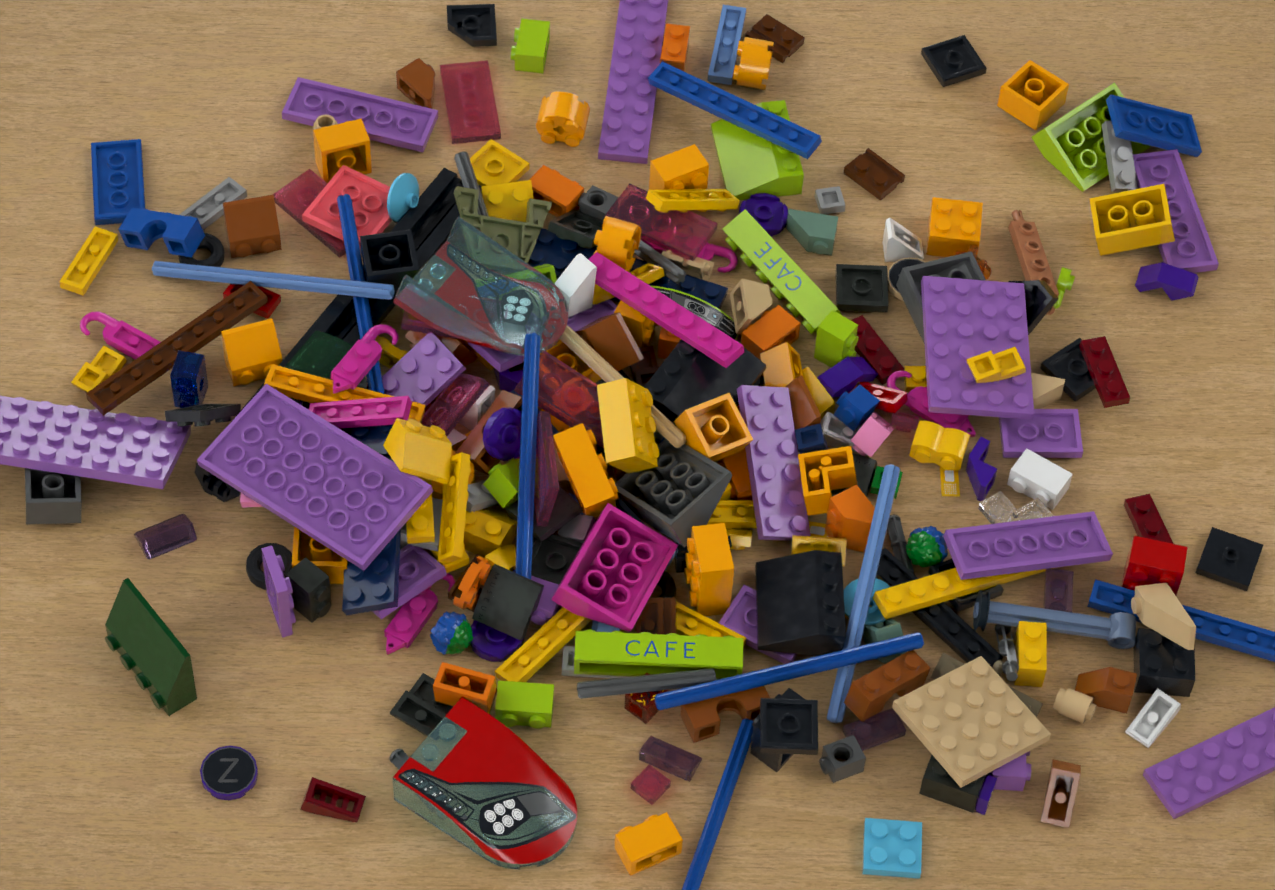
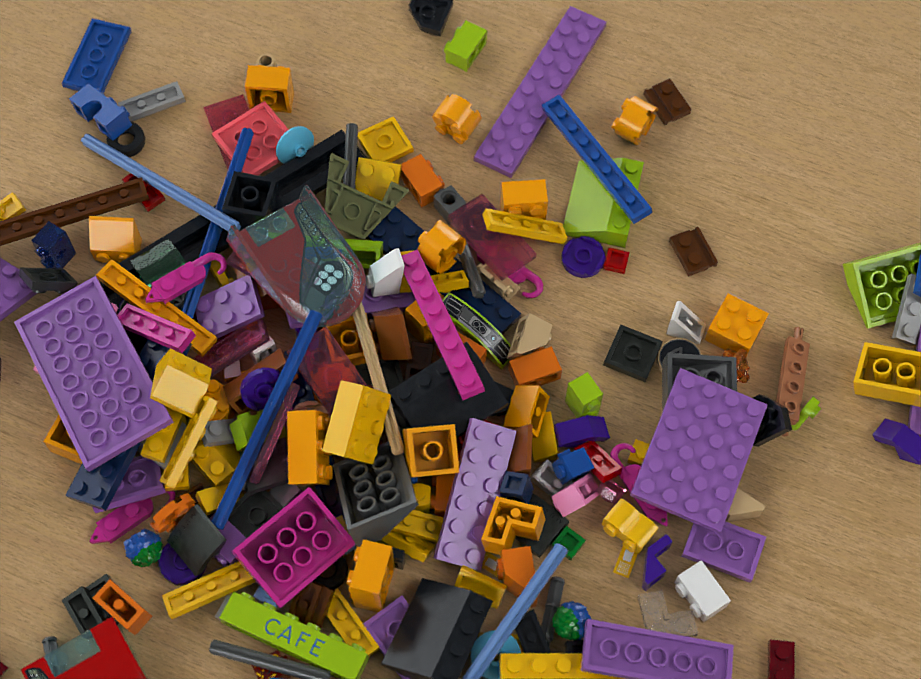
camera: 25 degrees right, 10 degrees up
(89, 261) = (39, 116): yellow plate -> none
(120, 335) = (29, 186): dark pink plate -> none
(252, 226) = (169, 130): dark orange slope -> none
(255, 559) = (27, 424): black tyre -> none
(278, 590) = (19, 461): medium lavender plate -> none
(310, 590) = (49, 466): pearl dark grey brick -> none
(383, 118) = (306, 60): medium lavender plate -> none
(417, 83) = (361, 49): dark orange slope -> none
(470, 102) = (395, 78): clear pink tile -> none
(524, 704) = (170, 636): lime brick -> none
(576, 227) = (421, 216): pearl dark grey plate -> none
(675, 45) = (578, 86): orange brick -> none
(726, 44) = (628, 87): medium blue plate -> none
(779, 270) = (570, 316): lime brick -> none
(800, 202) = (616, 260): none -> red tile
(813, 230) = (617, 287): sand green slope -> none
(830, 200) = (643, 263): light grey plate -> none
(875, 351) = (616, 412): dark red plate -> none
(953, 61) = (808, 171): black plate -> none
(996, 367) = (704, 477): yellow slope -> none
(1032, 95) = (860, 226): light orange brick -> none
(1071, 366) = (784, 497): black plate -> none
(1104, 372) = (805, 511): dark red plate -> none

